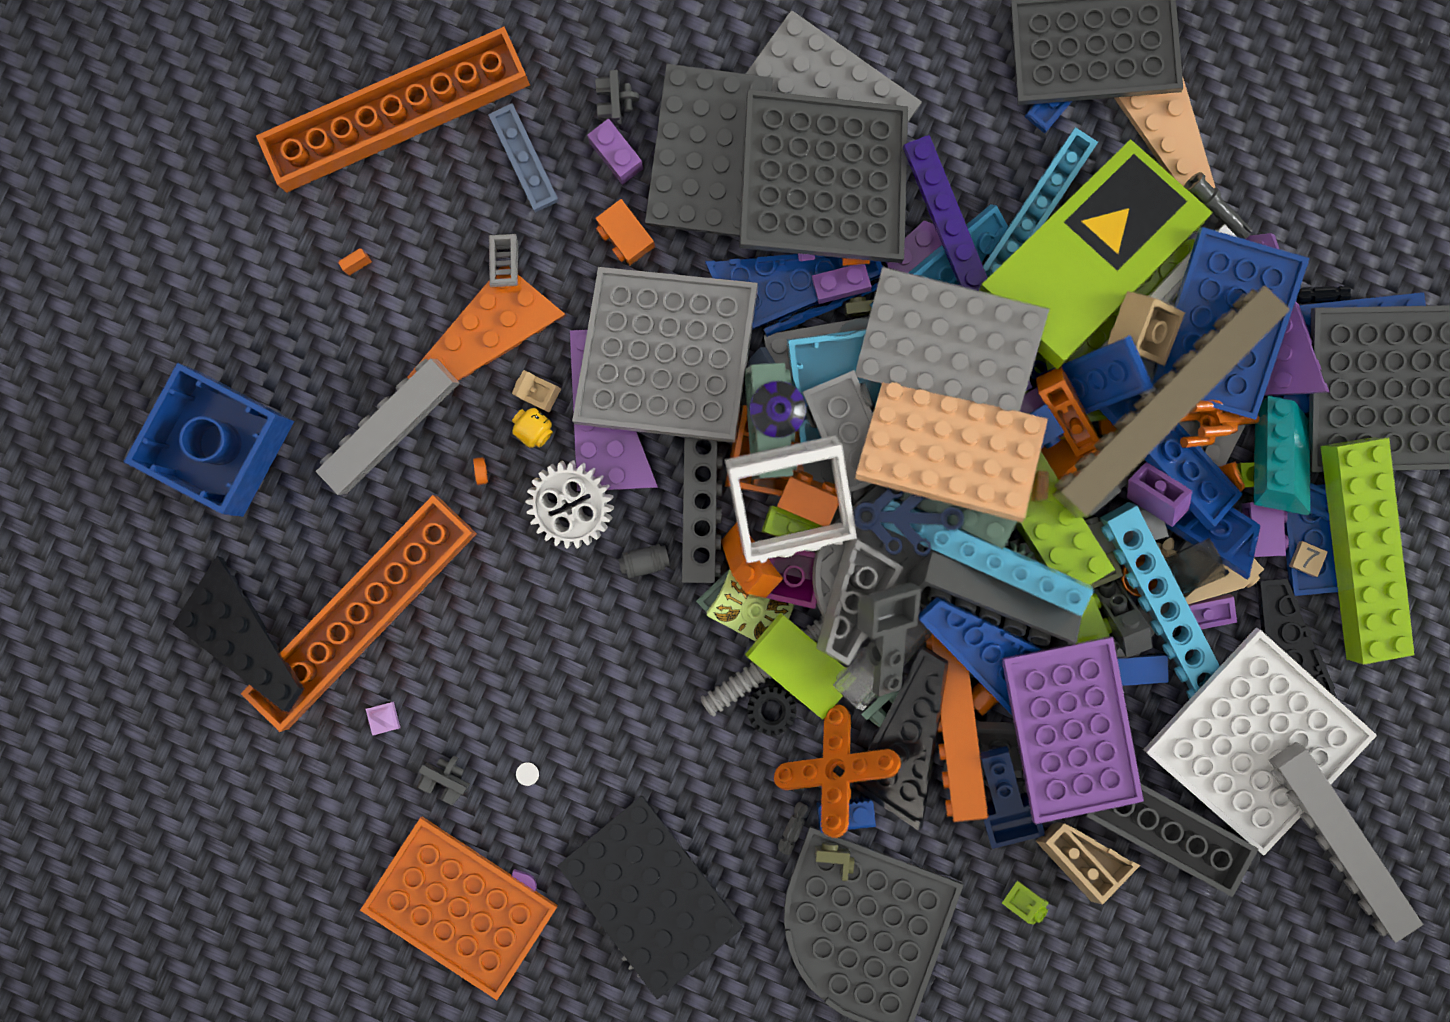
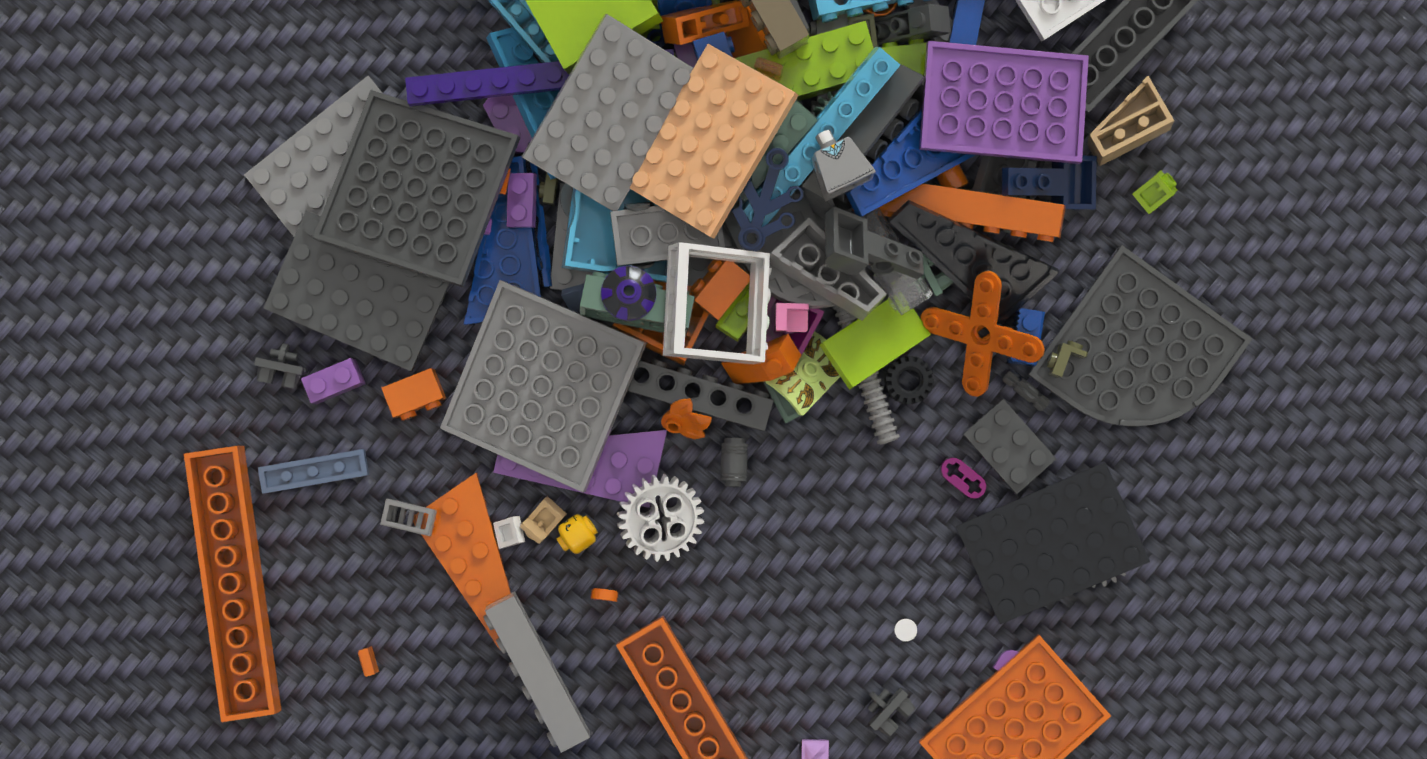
camera: 70 degrees left, 0 degrees up
(516, 361) = (509, 532): none -> white plate
(670, 499) = (683, 421): none -> orange plate
(696, 792) = (967, 473): none -> magenta beam
(734, 827) = (1009, 446): none -> dark grey plate
(799, 578) = (791, 317): none -> bright pink panel
(963, 583) = (839, 165): none -> light grey torso

